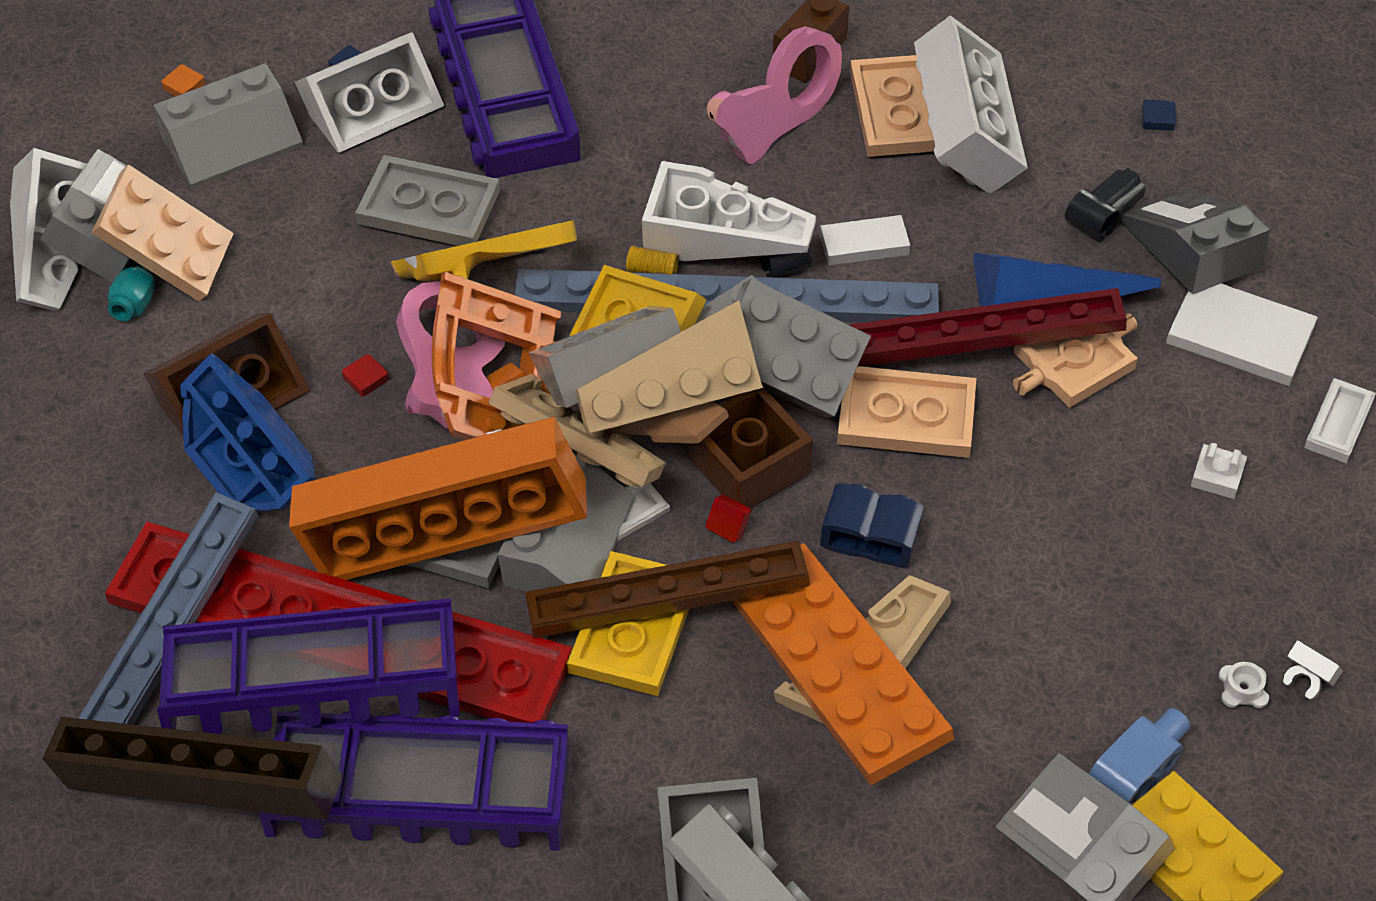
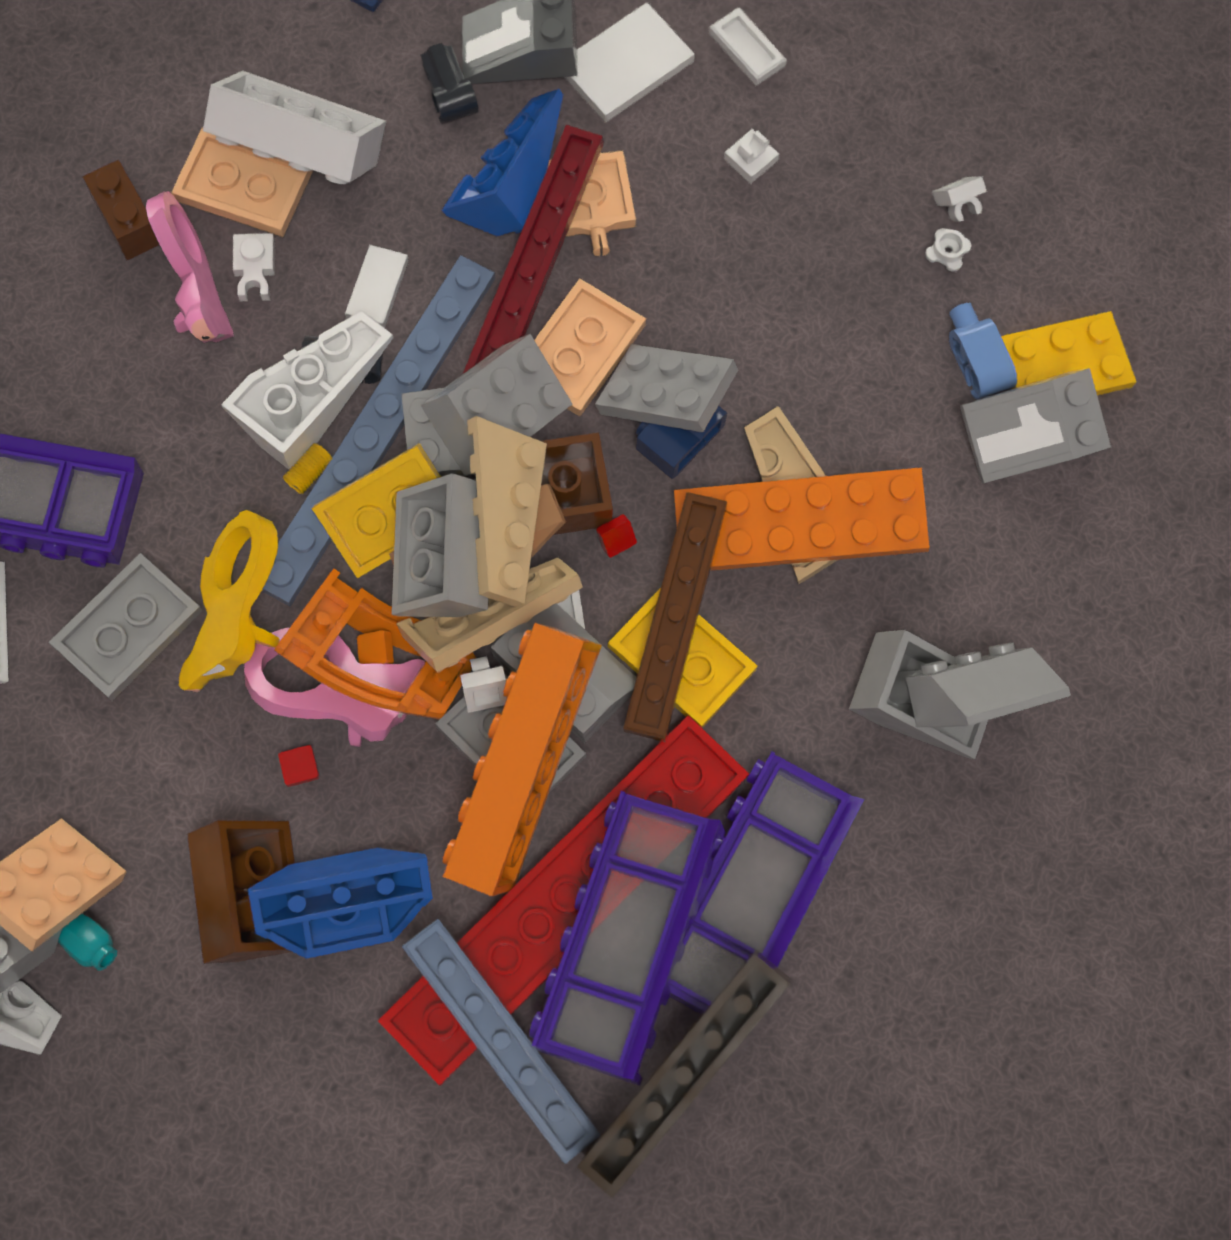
camera: 70 degrees left, 20 degrees up
(828, 145) = (253, 259): none -> white plate
(902, 483) = (667, 387): none -> light grey plate

